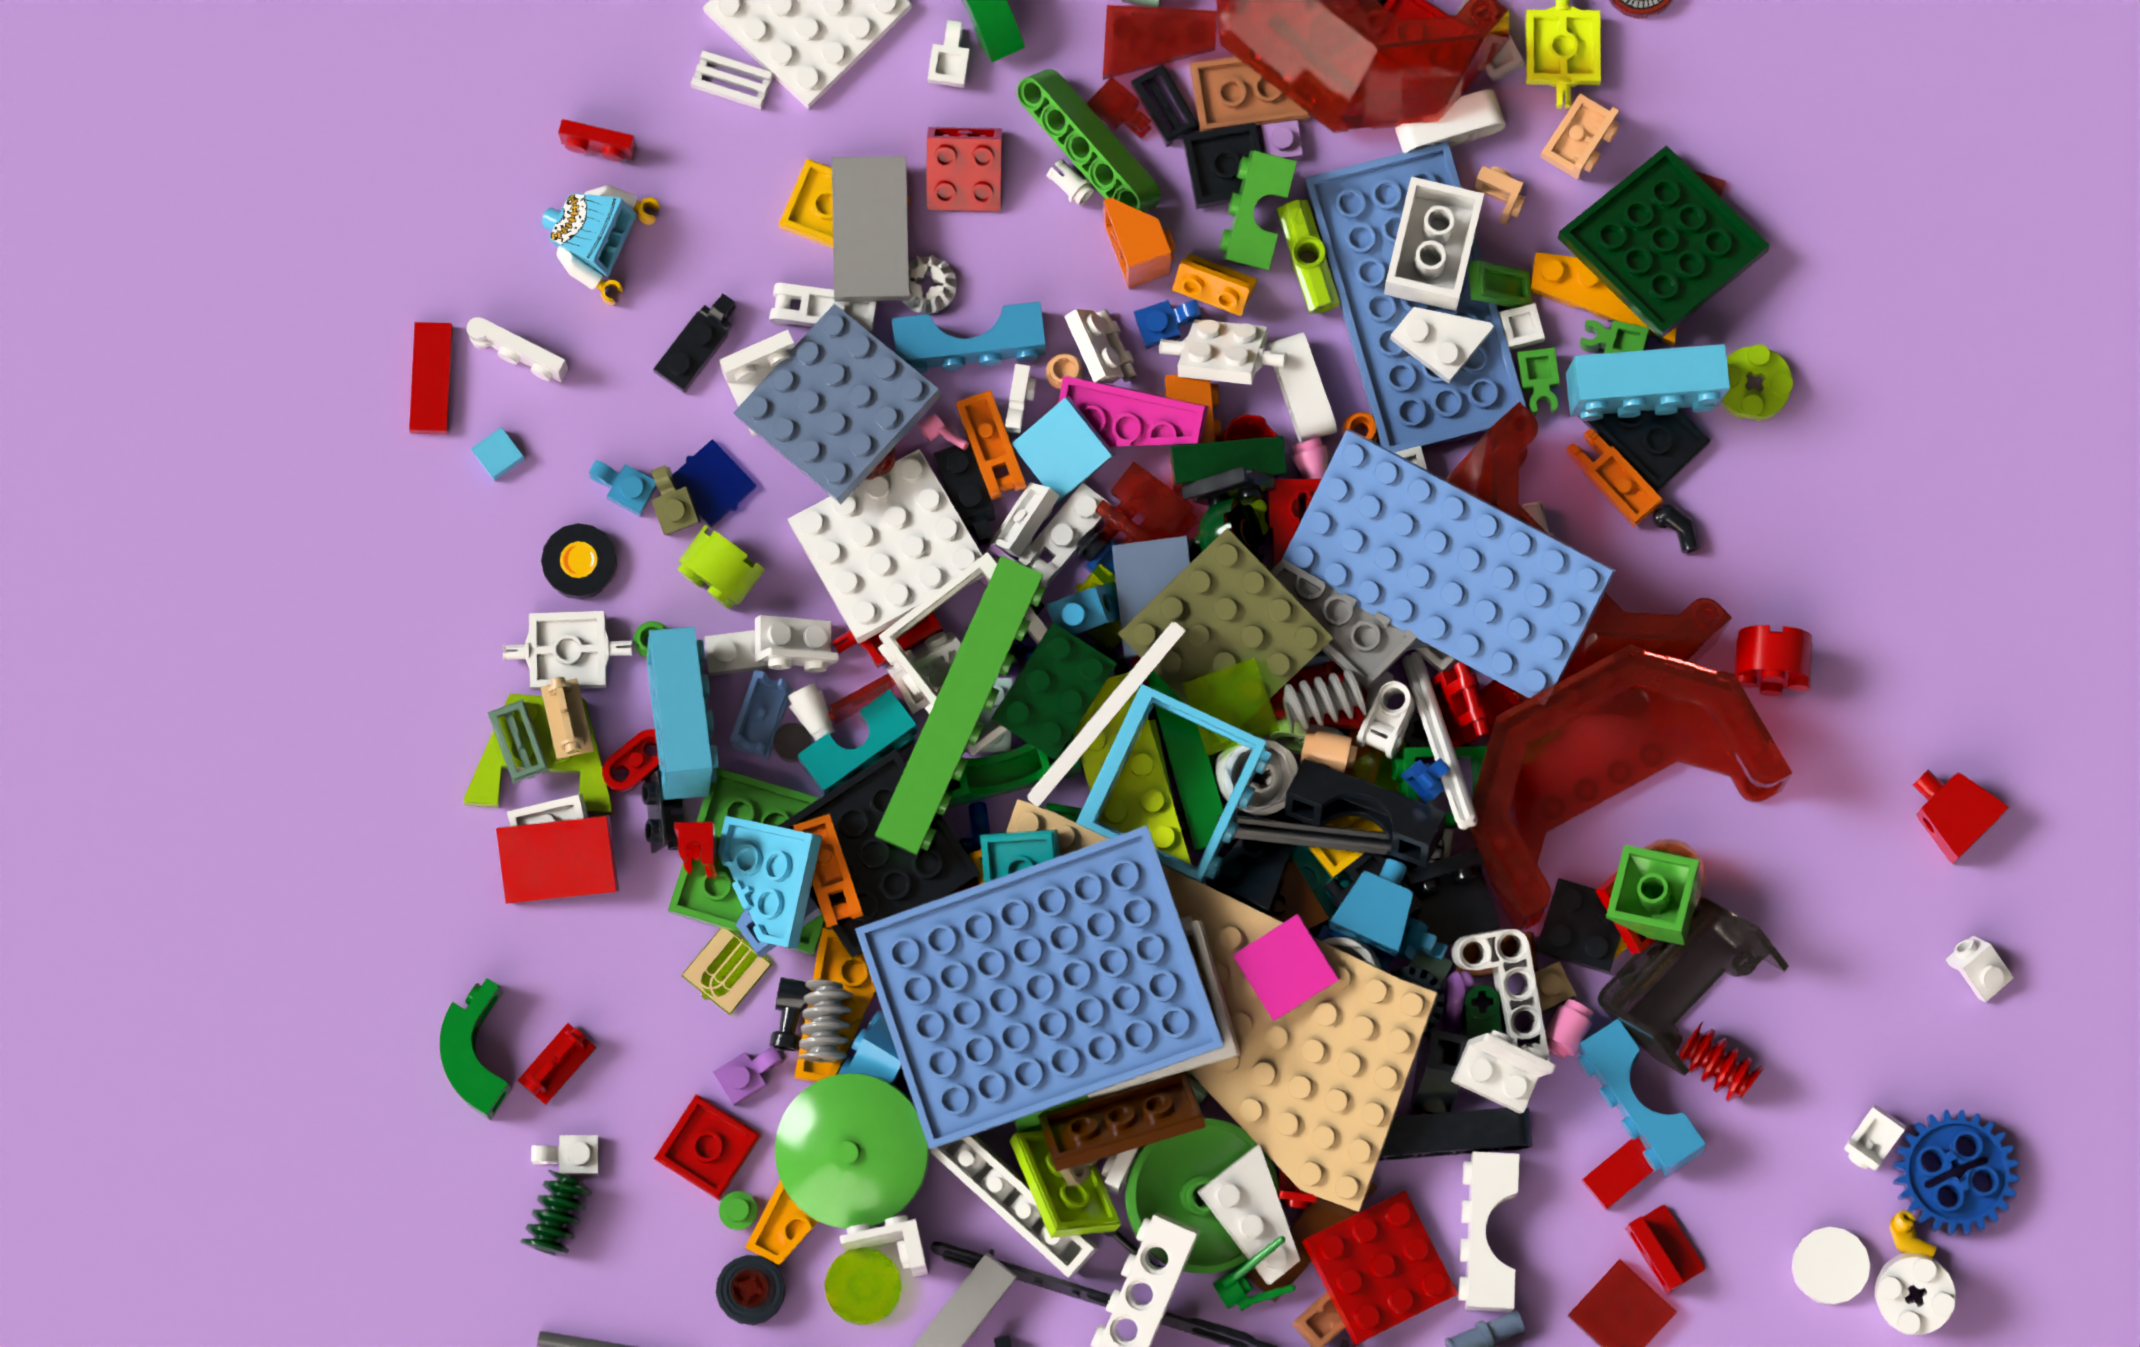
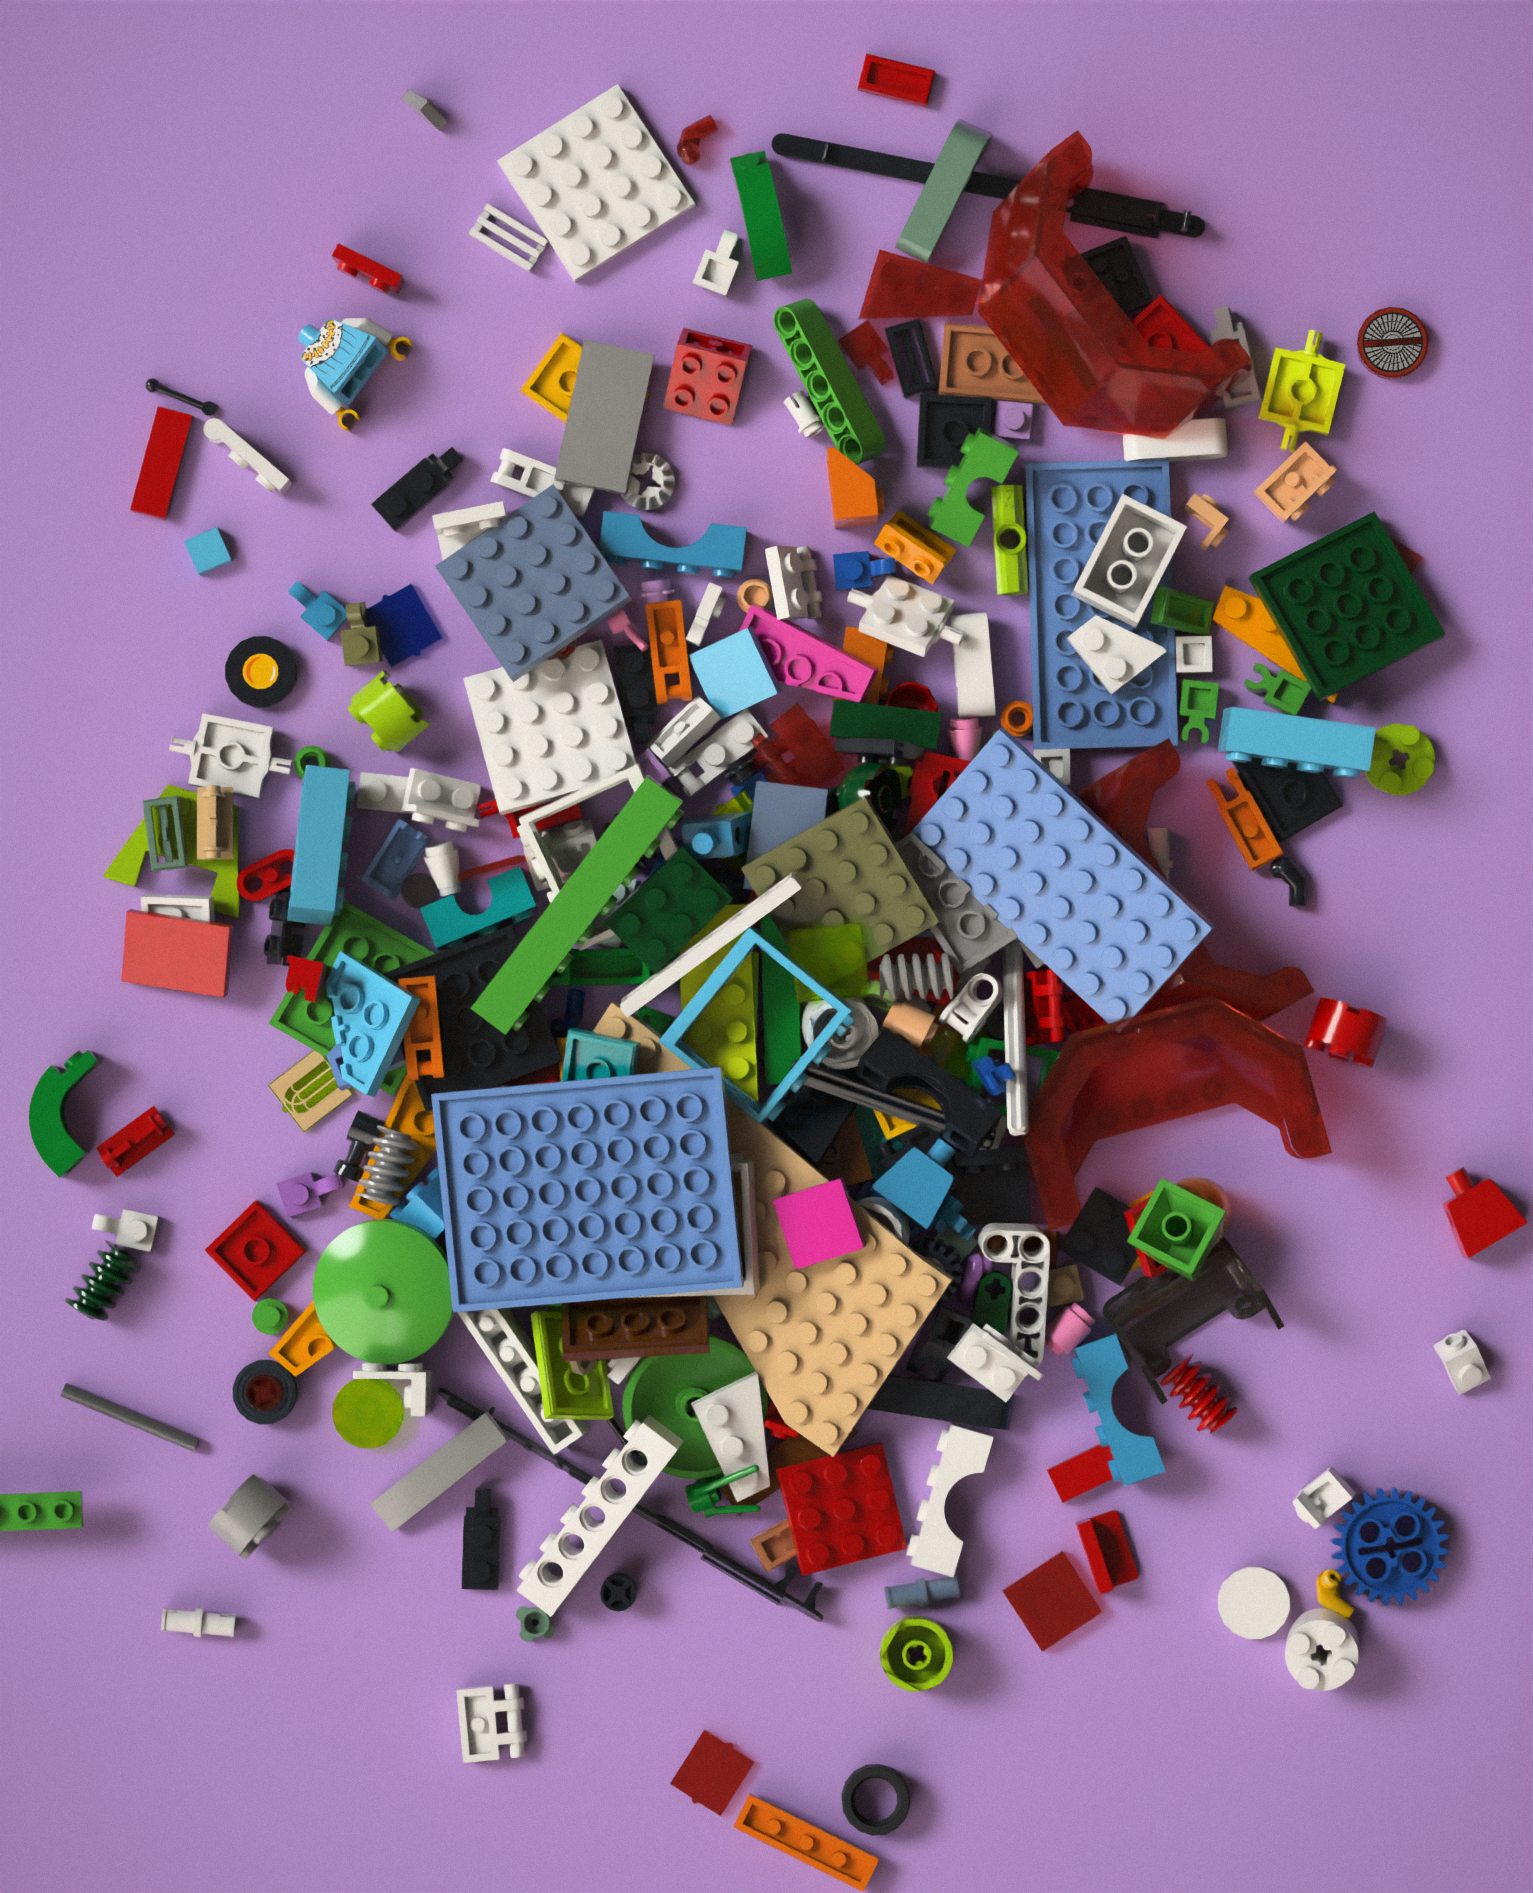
camera: 15 degrees right, 10 degrees up
(465, 313) = (207, 408): none -> black hinge
(962, 387) = (656, 590): none -> lavender plate

